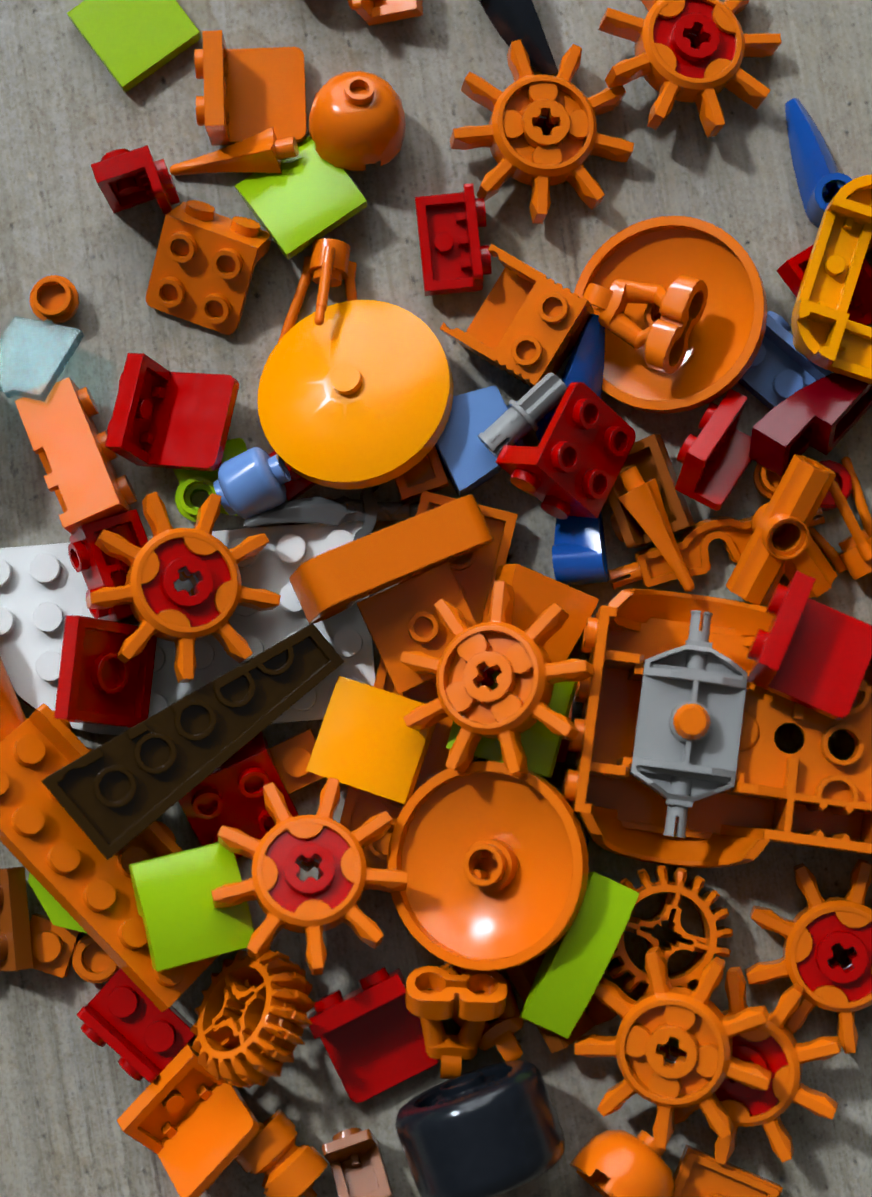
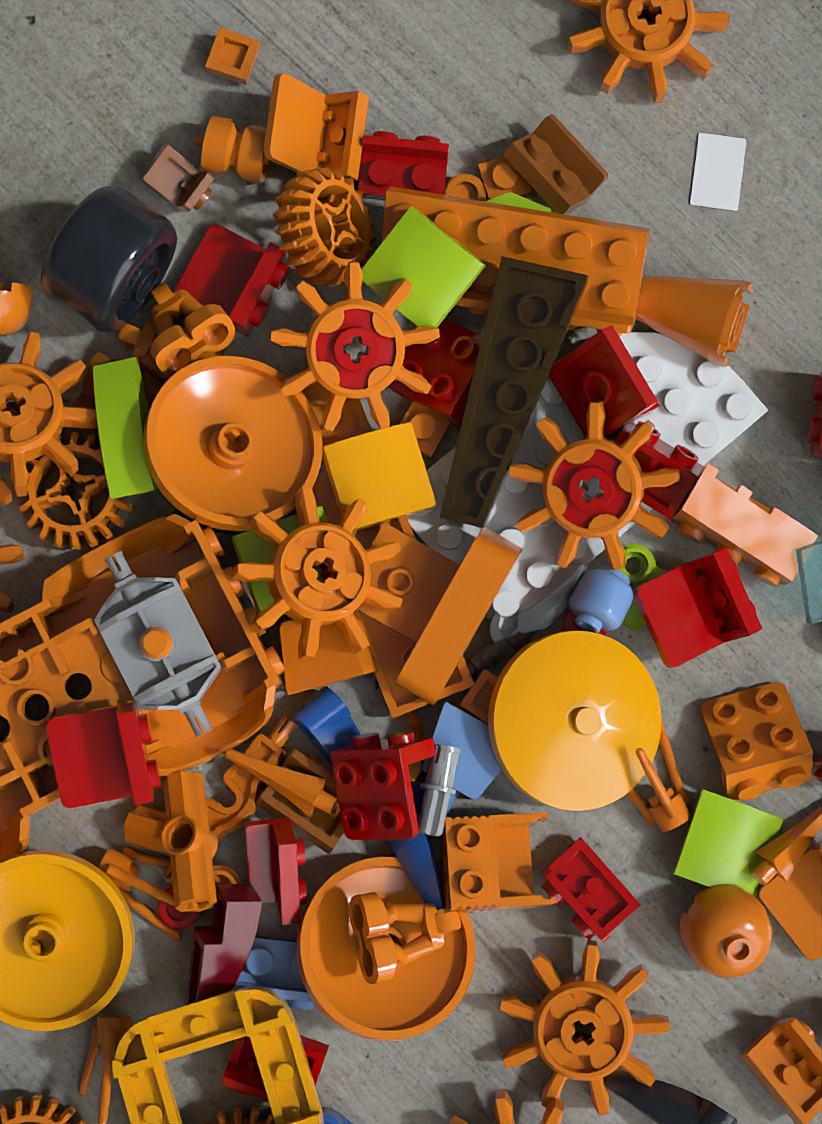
camera: 145 degrees right, 0 degrees up
(504, 487) = (414, 724): none -> orange leg

